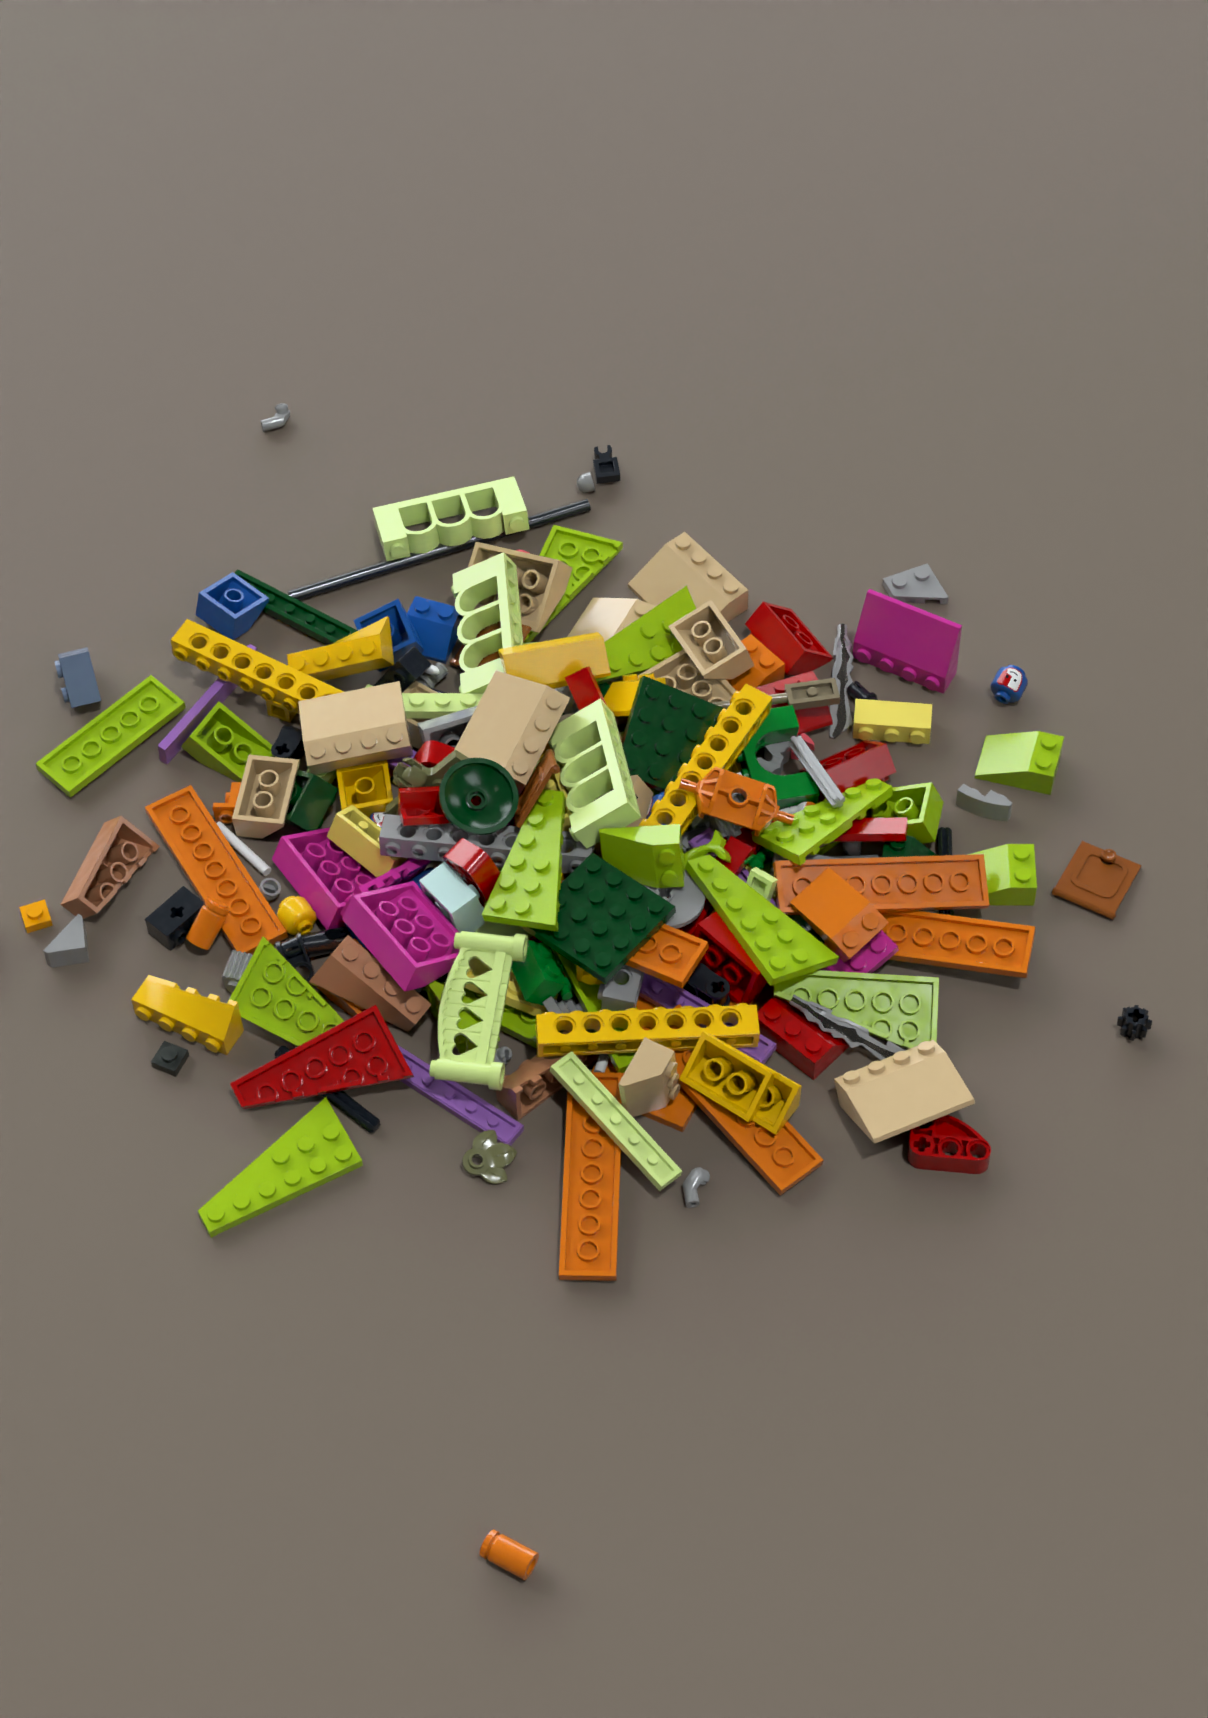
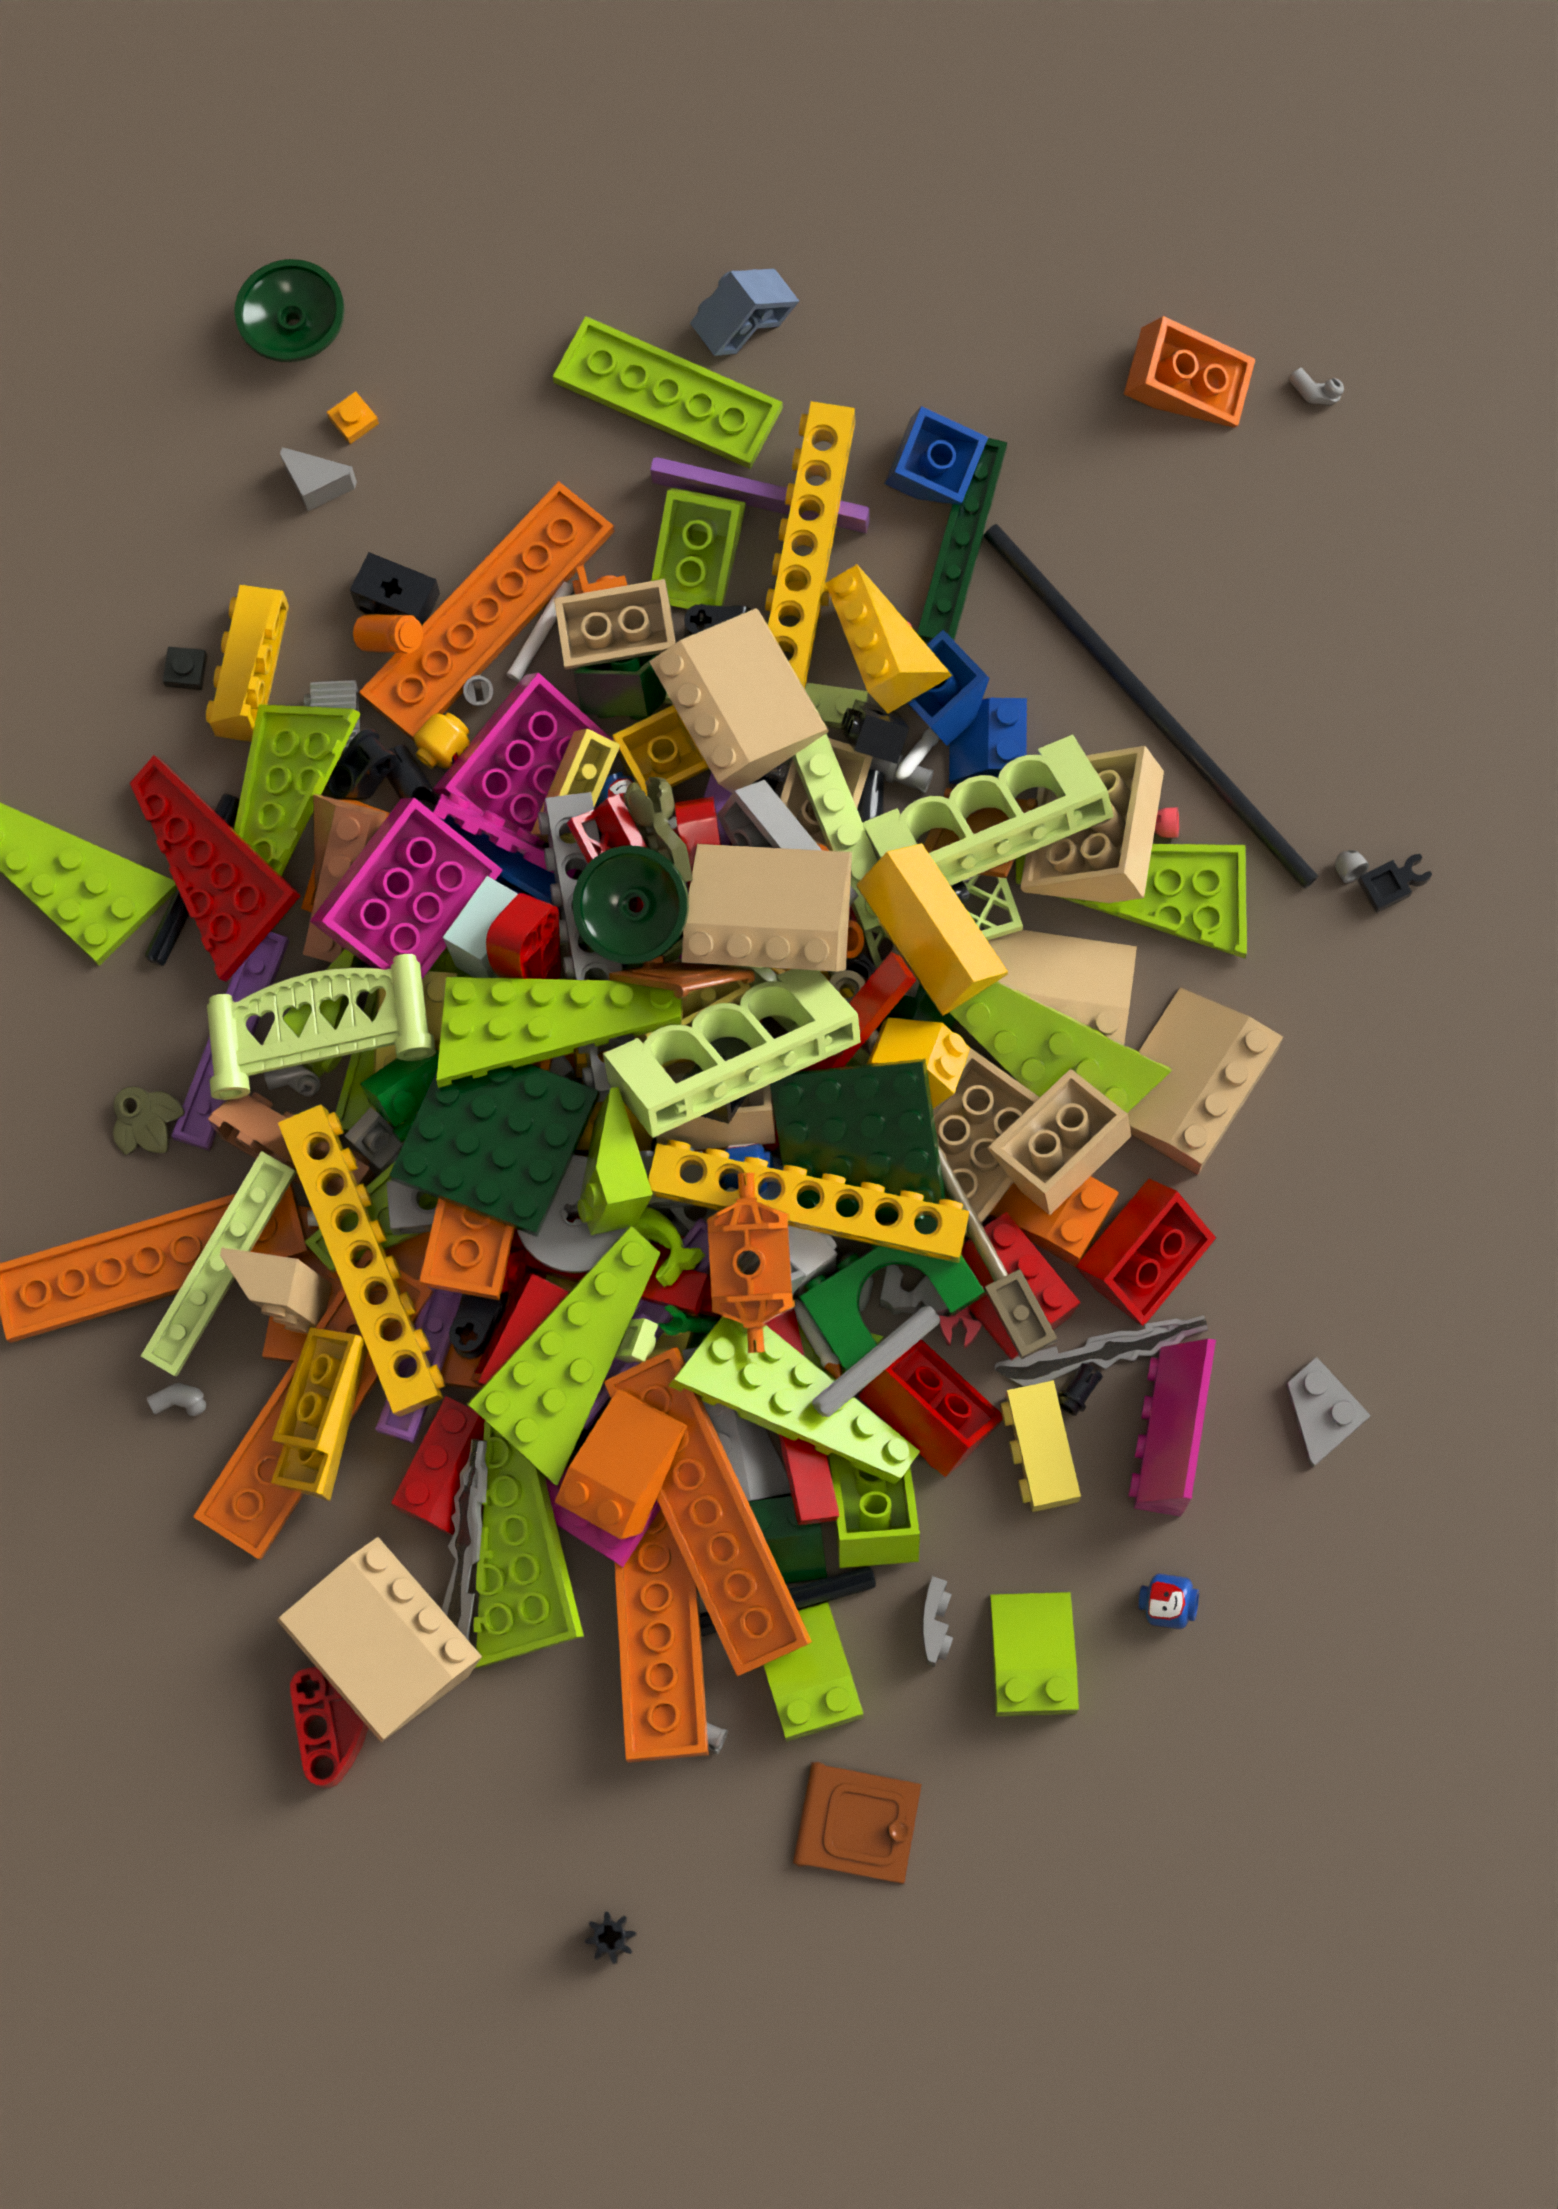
camera: 75 degrees right, 20 degrees up
(108, 865) = (445, 473): nougat wedge -> none
(236, 473) = (1188, 373): none -> orange slope
(400, 542) = (1228, 778): yellowish green fence -> none

